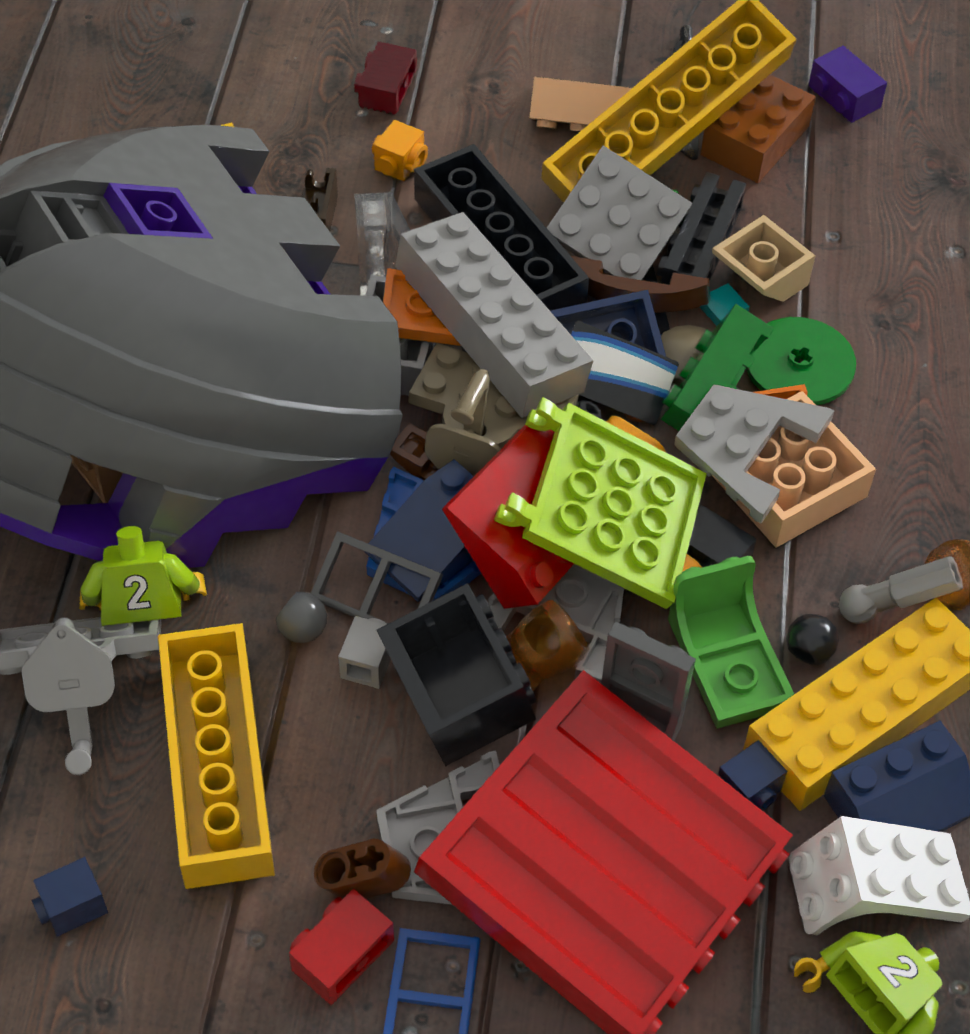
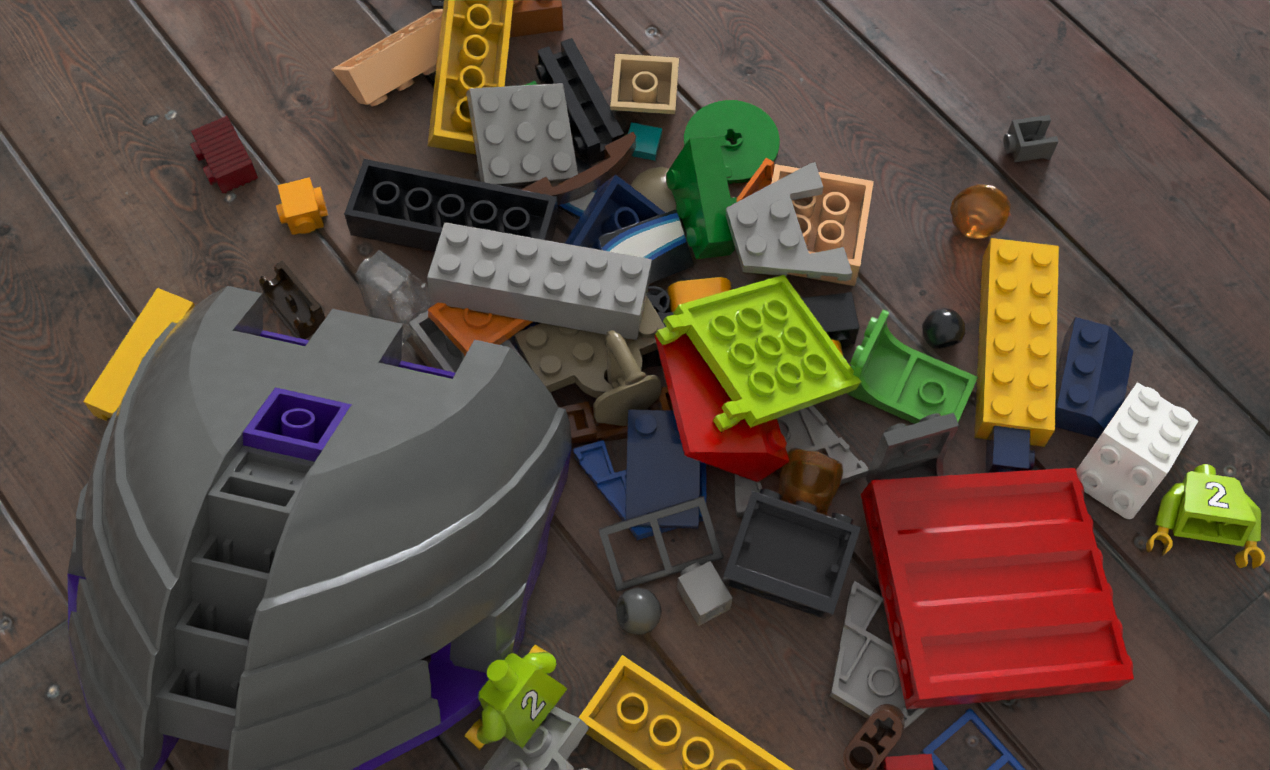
camera: 45 degrees left, 10 degrees up
(910, 587) = (968, 248): light grey piece -> none

